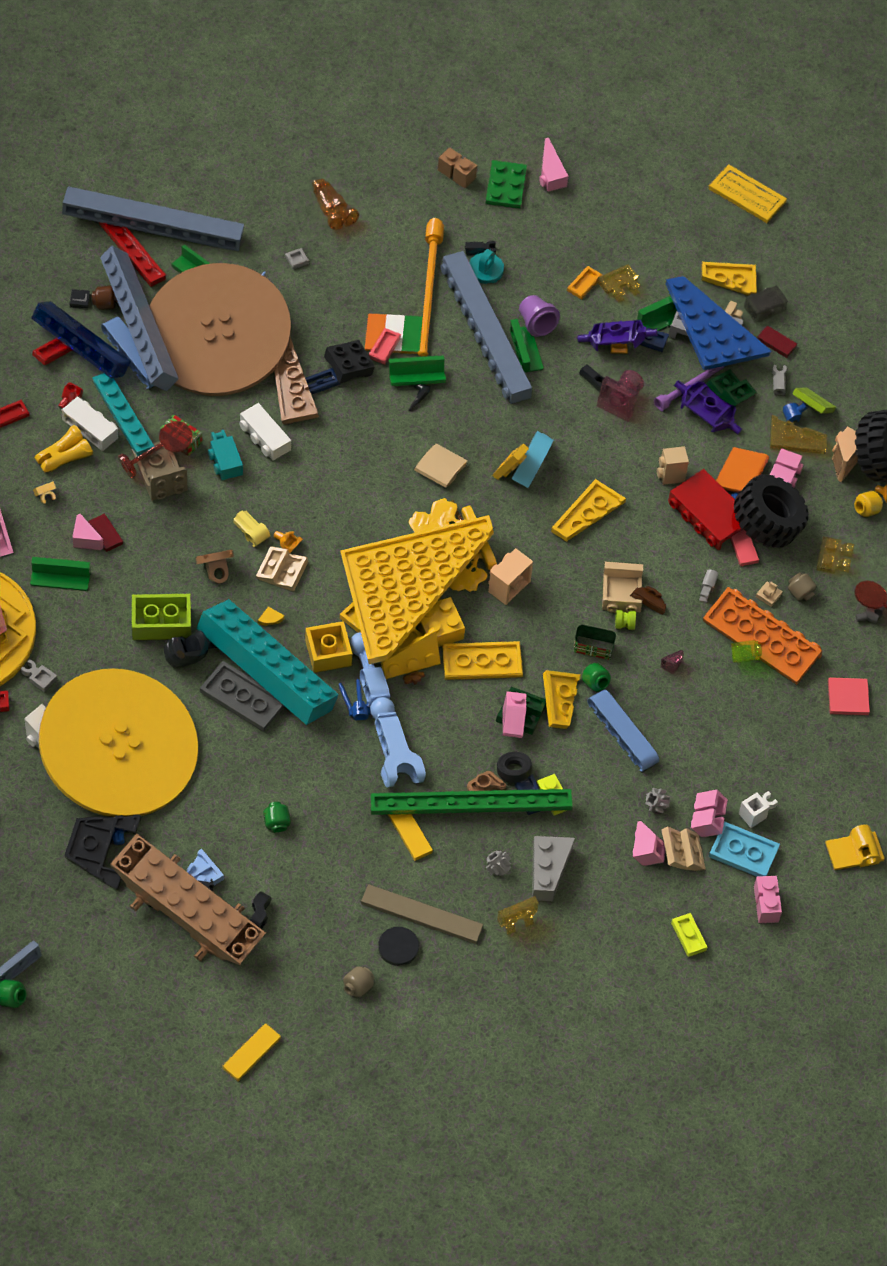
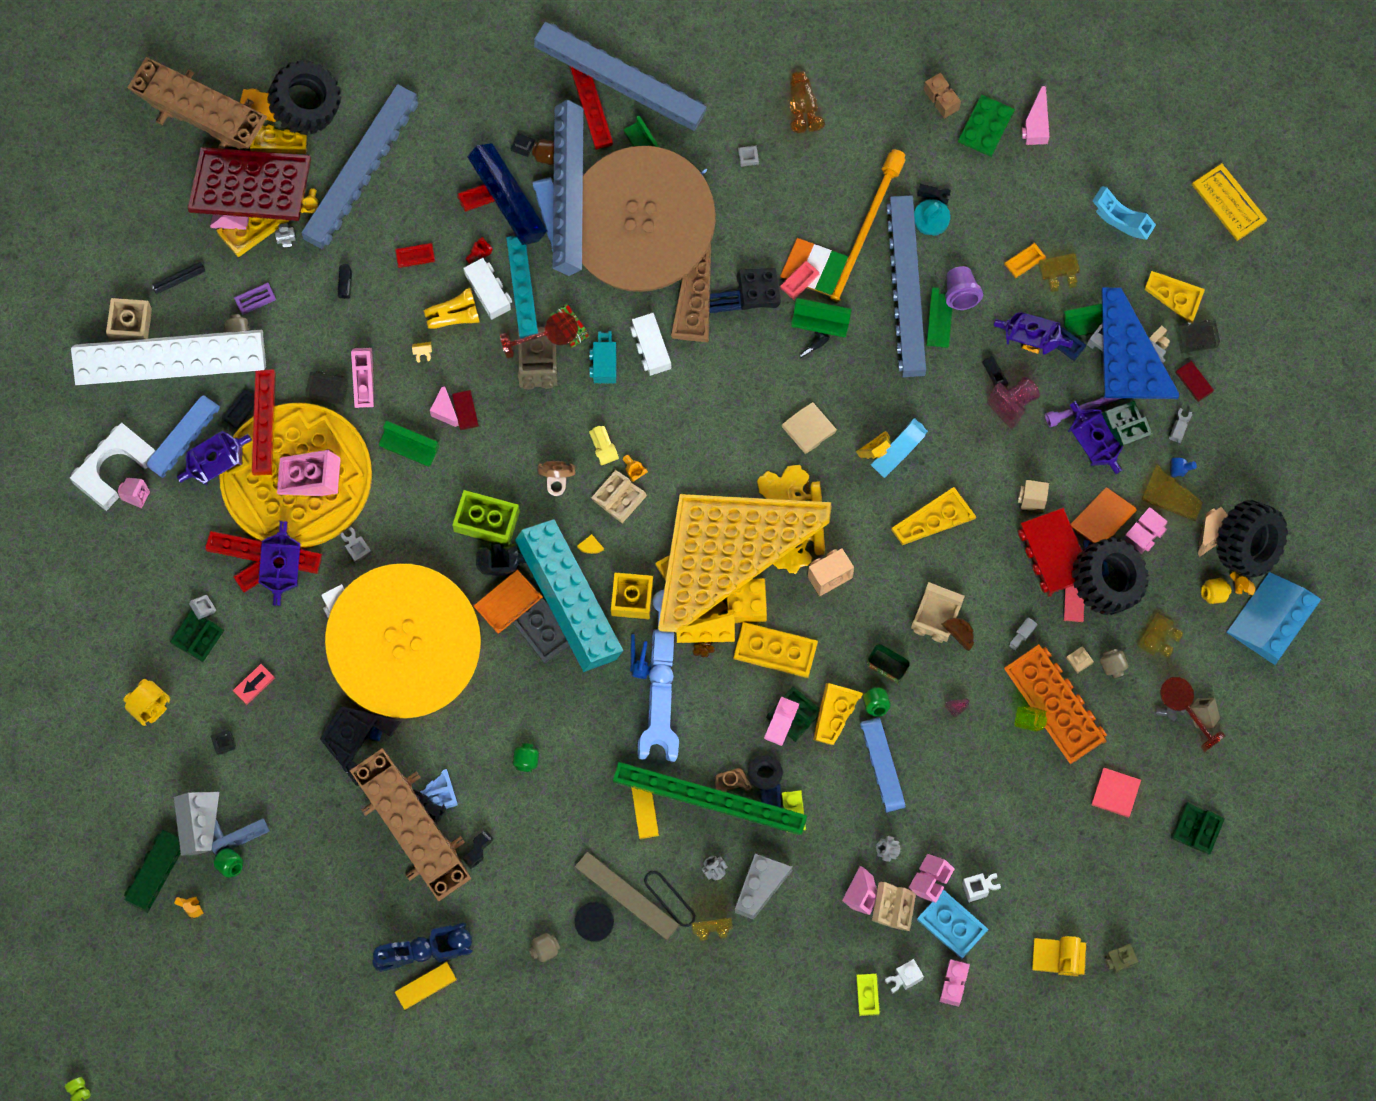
camera: 25 degrees right, 15 degrees up
(209, 683) = (507, 601): none -> orange piece
(236, 1016) = (422, 949): none -> dark blue piece
(467, 898) = (664, 905): none -> black piece
(625, 619) = (925, 647): lime wheel -> none
(655, 226) = (1129, 221): none -> medium azure arch
(720, 906) = (907, 975): none -> white brick
(814, 400) = (1204, 461): lime tile -> none

